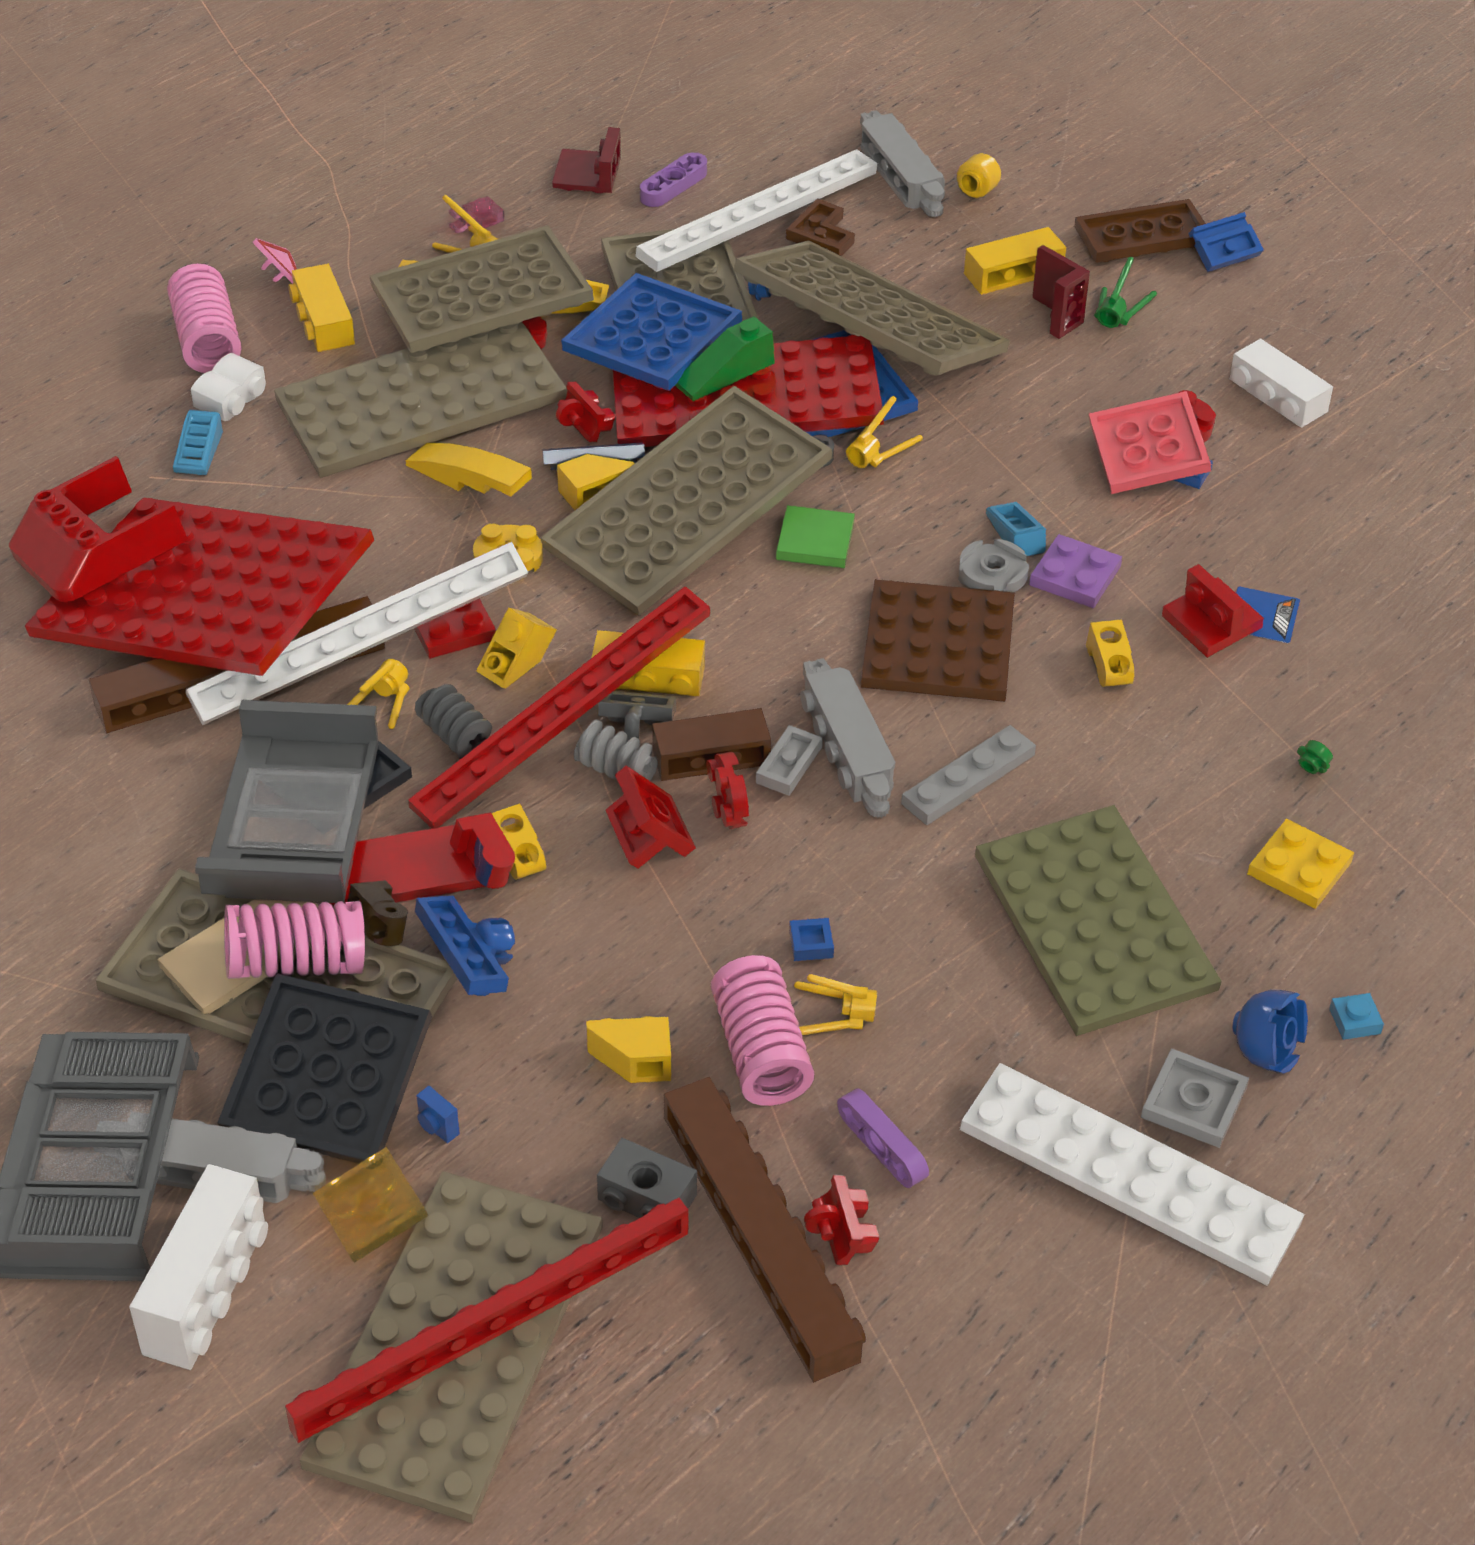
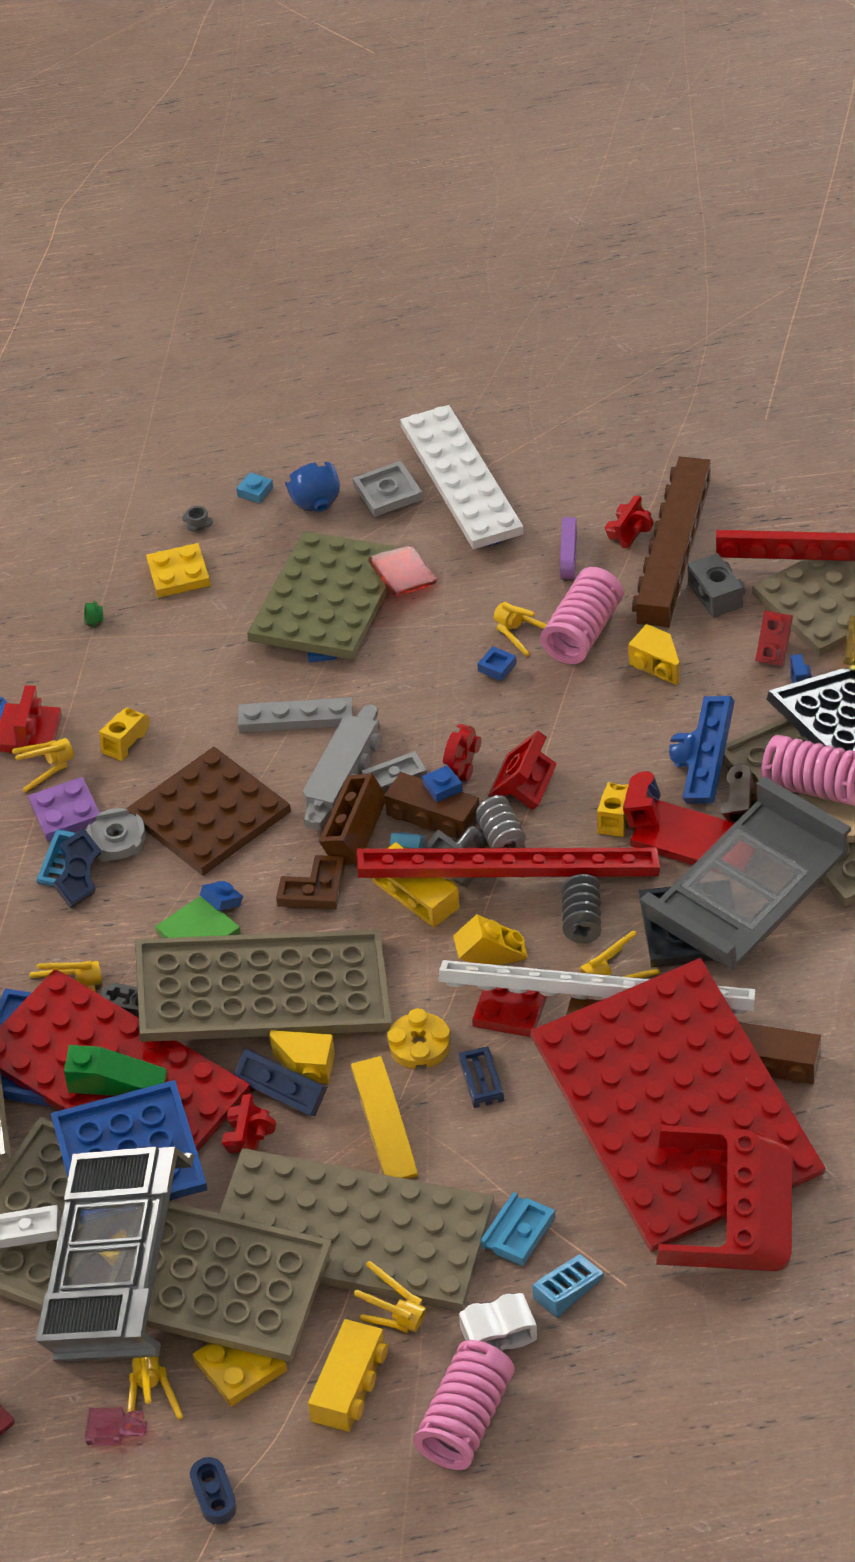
camera: 135 degrees left, 0 degrees up
(273, 456) = (518, 1229): none -> dark azure plate
(279, 257) = (339, 1453): bright pink piece -> none
(312, 359) = (408, 1313): none -> yellow plant
(358, 212) = (214, 1492): none -> dark blue plate
(416, 555) = (485, 1096): none -> dark blue tile
(503, 1136) = (774, 638): none -> red hips
(593, 254) = (108, 1254): none -> dark grey piece
(699, 699) = (408, 840): none -> dark azure plate
(709, 739) = (442, 783): none -> blue plate
(742, 619) = (318, 890): none -> reddish brown plate
(771, 678) = (353, 817): none -> reddish brown brick
(825, 565) = (221, 895): none -> blue plate
(989, 517) = (75, 881): none -> dark blue tile
(1041, 985) = (402, 570): none -> clear red piece
(1146, 596) = (54, 751): none -> yellow plant
(1362, 932) = (197, 518): none -> dark grey plate

